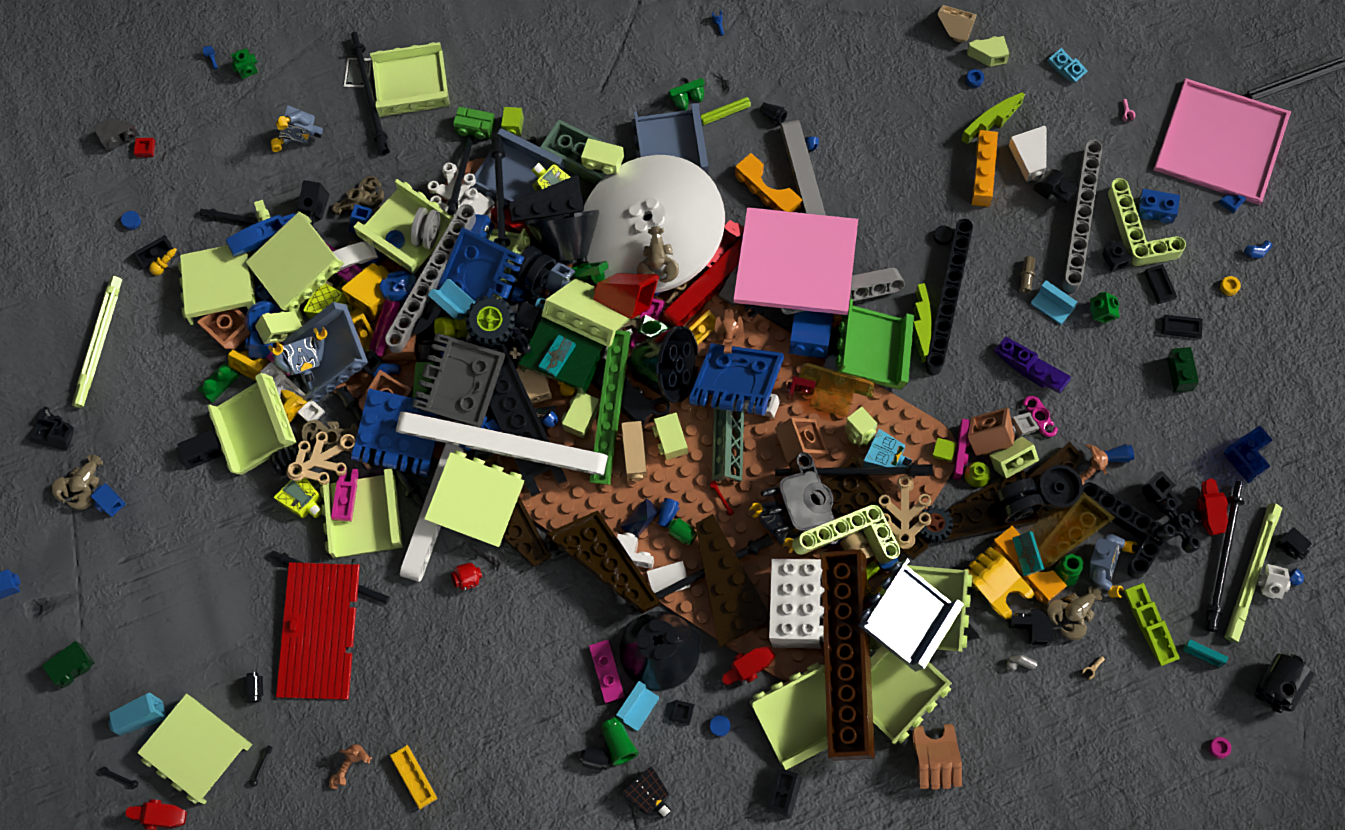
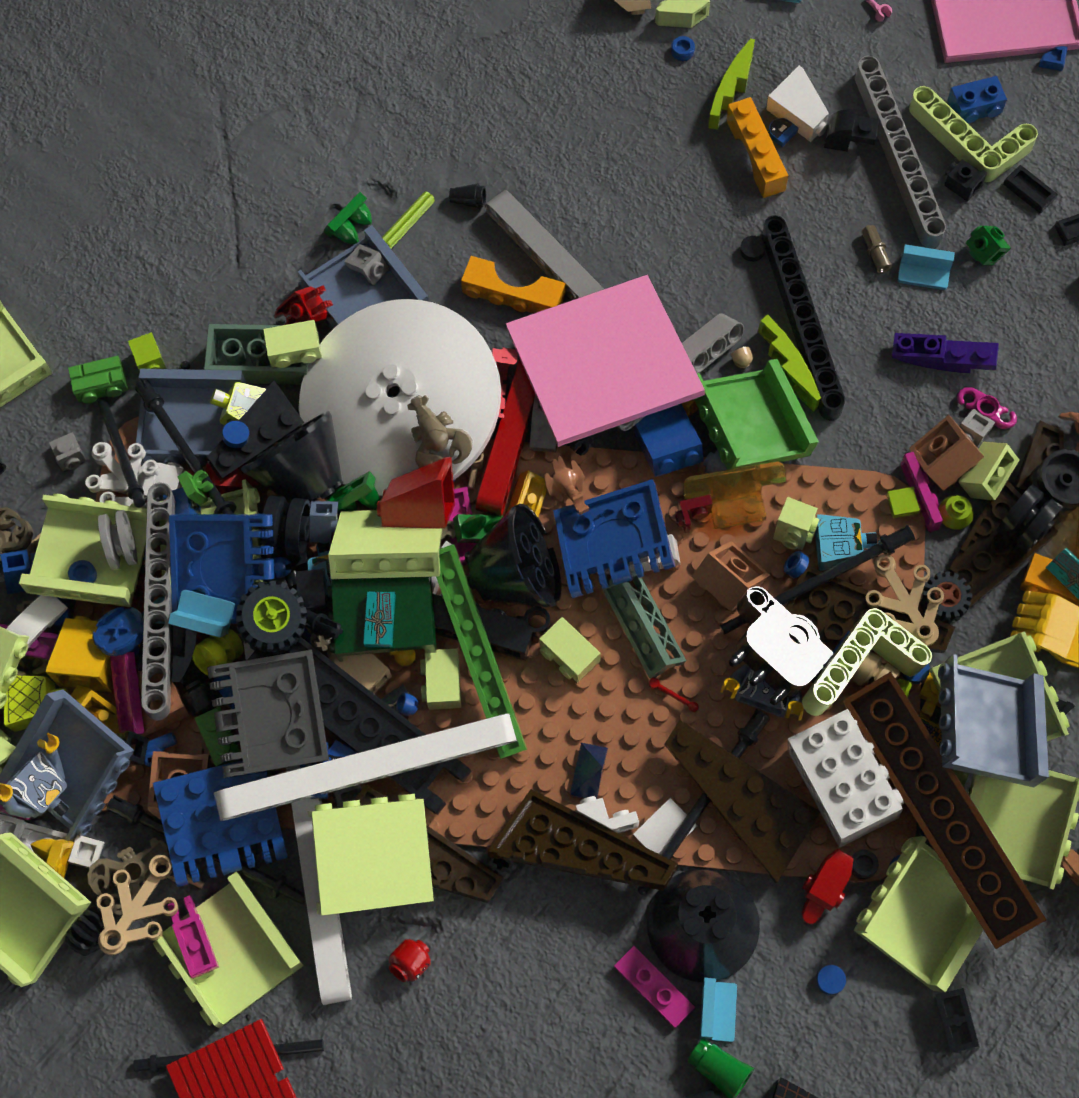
camera: 30 degrees left, 0 degrees up
(300, 498) = (134, 972): torso -> none
(431, 160) = (67, 452): none -> light grey bracket
(491, 219) = (193, 486): none -> bright green tile
(533, 197) = (235, 434): none -> blue tile
(624, 136) = (304, 306): none -> red hinge
(634, 450) = (536, 690): tan slope -> none
(667, 512) = (619, 746): blue cone -> none
(682, 126) = (368, 263): none -> light grey bracket
(682, 531) = (651, 761): green brick -> none
(682, 712) = (775, 987): black tile -> none
(718, 20) = (336, 115): blue hand -> none
(781, 665) = (864, 864): none -> black tile
(812, 143) = (536, 209): blue hinge -> none
(848, 454) = (796, 564): none -> blue tile
(893, 303) = (742, 357): none -> tan hinge
(1010, 165) = (782, 131): none -> tile

